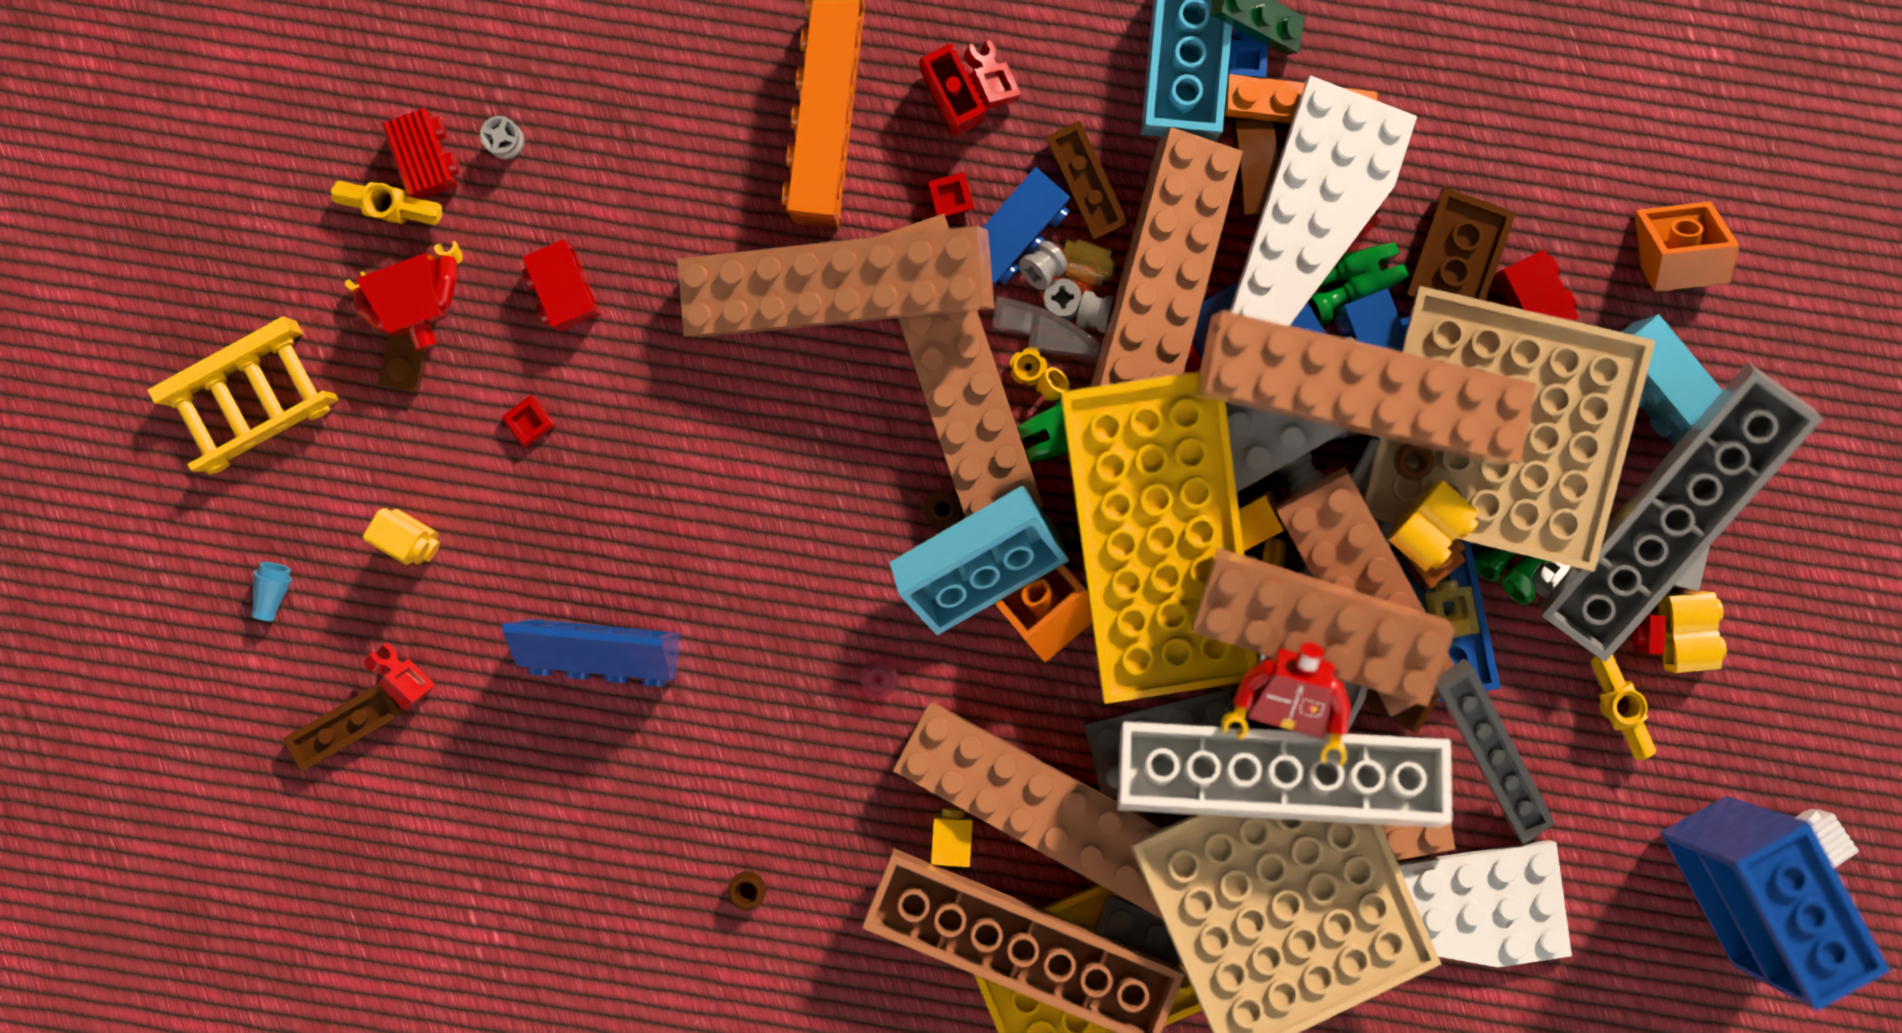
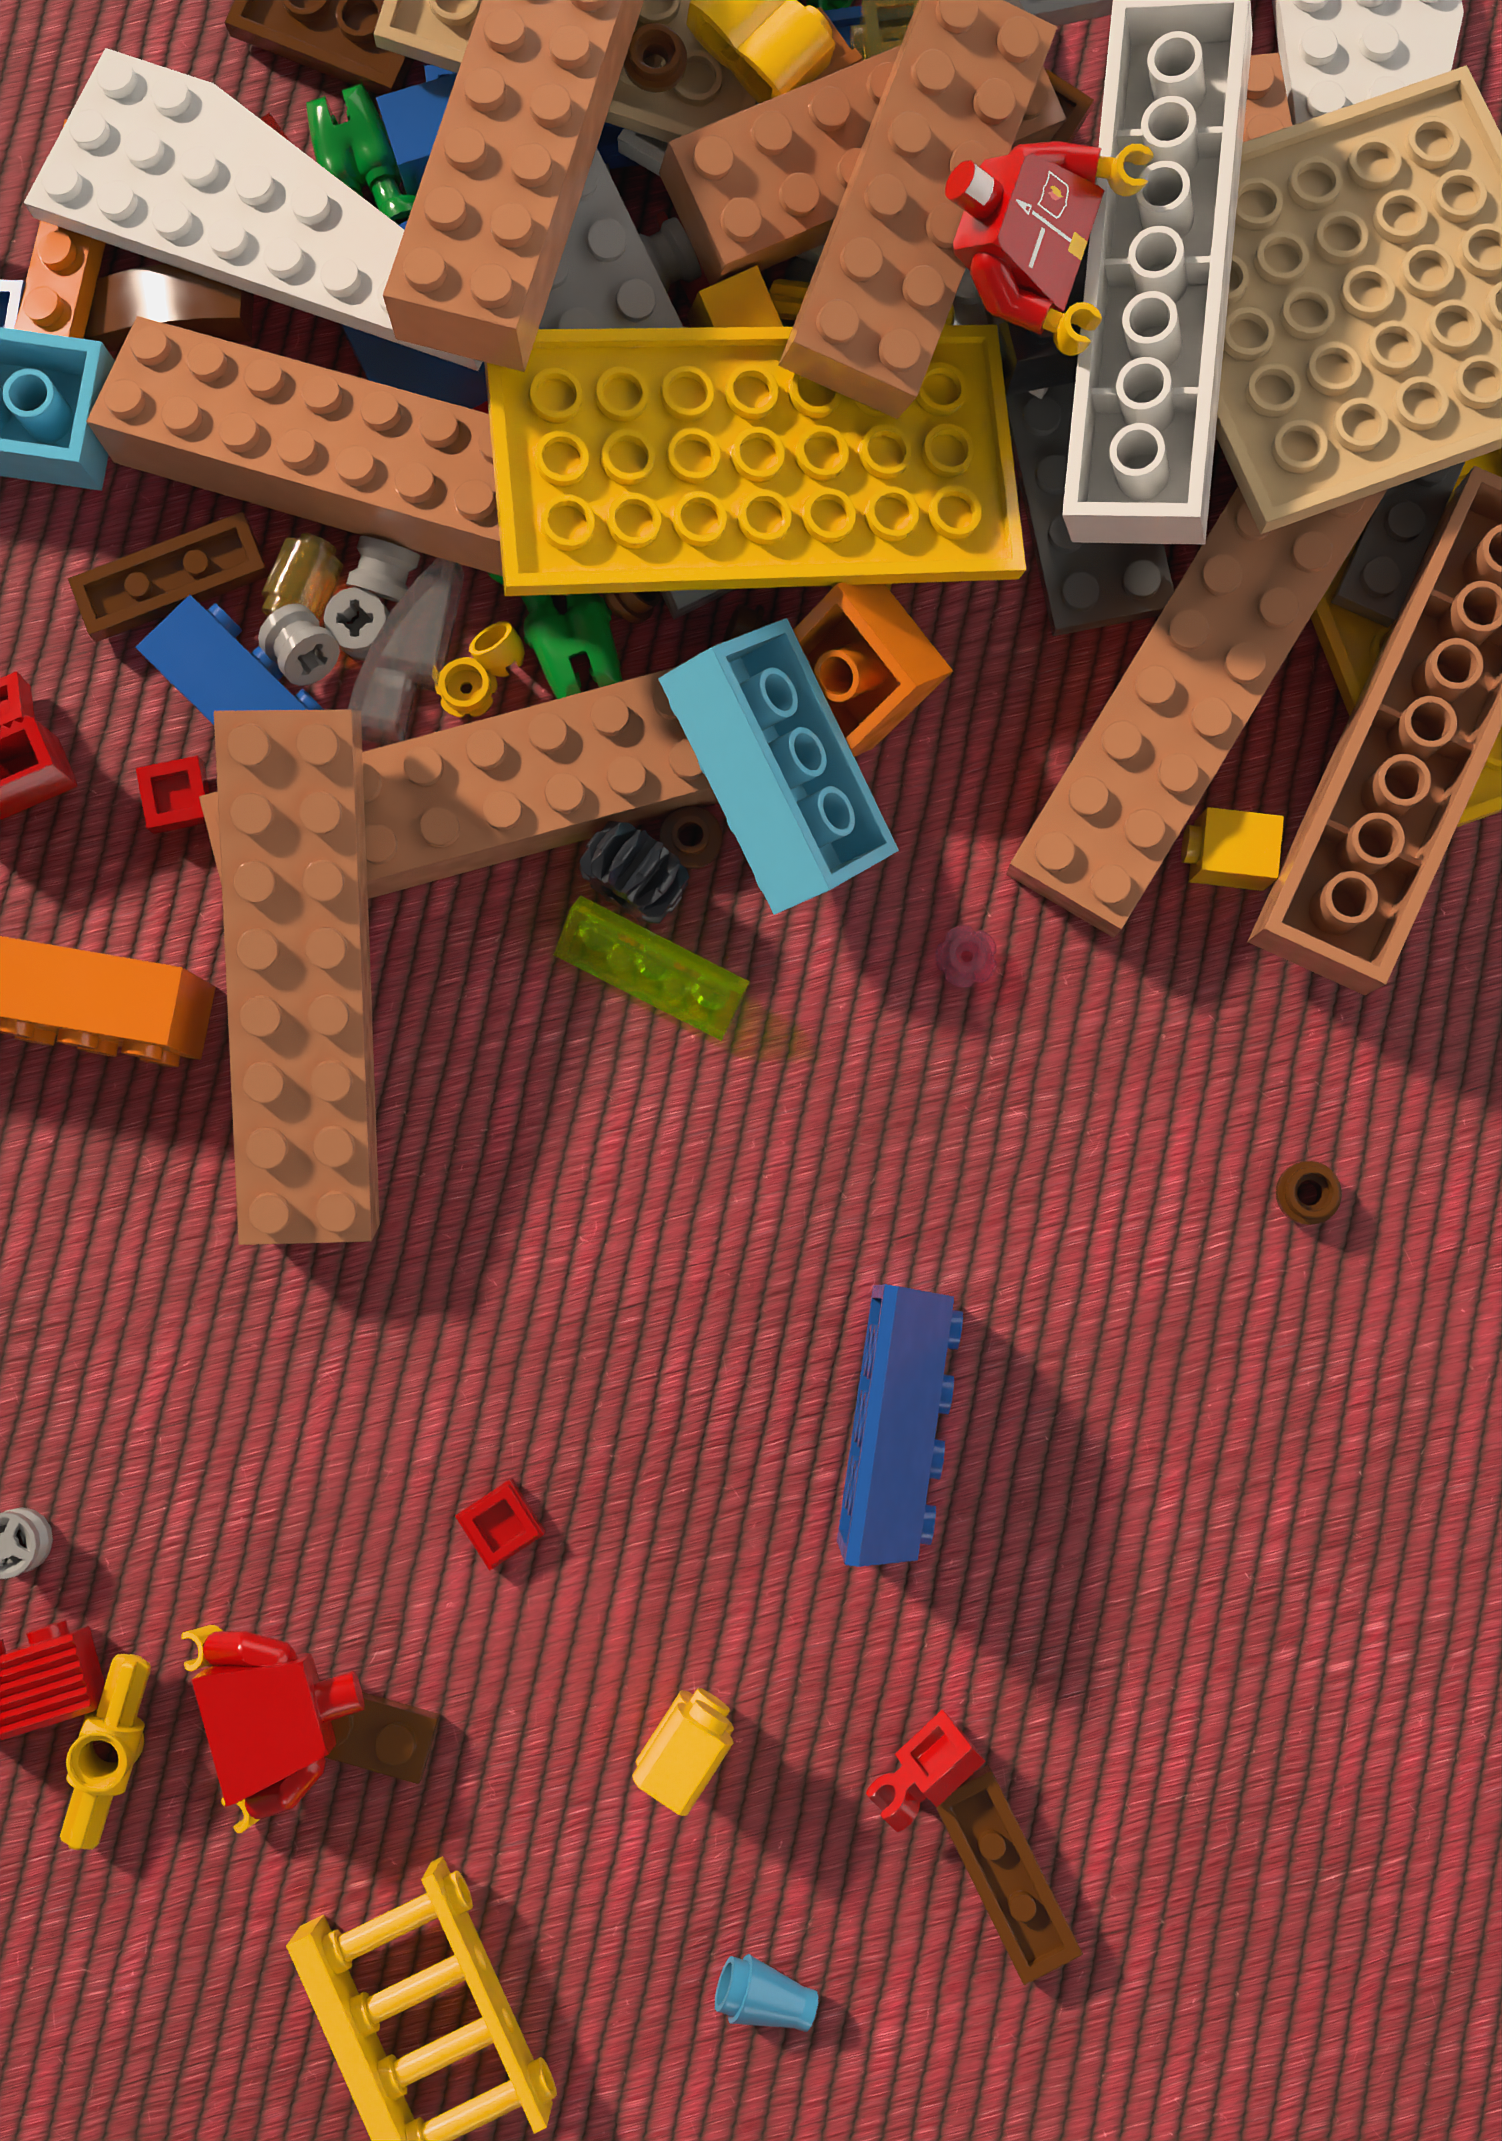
camera: 85 degrees left, 5 degrees down
(560, 286) = (271, 1453): red brick -> none
(860, 490) = (650, 968): none -> clear neon green plate
(915, 476) = (634, 871): none -> black gear

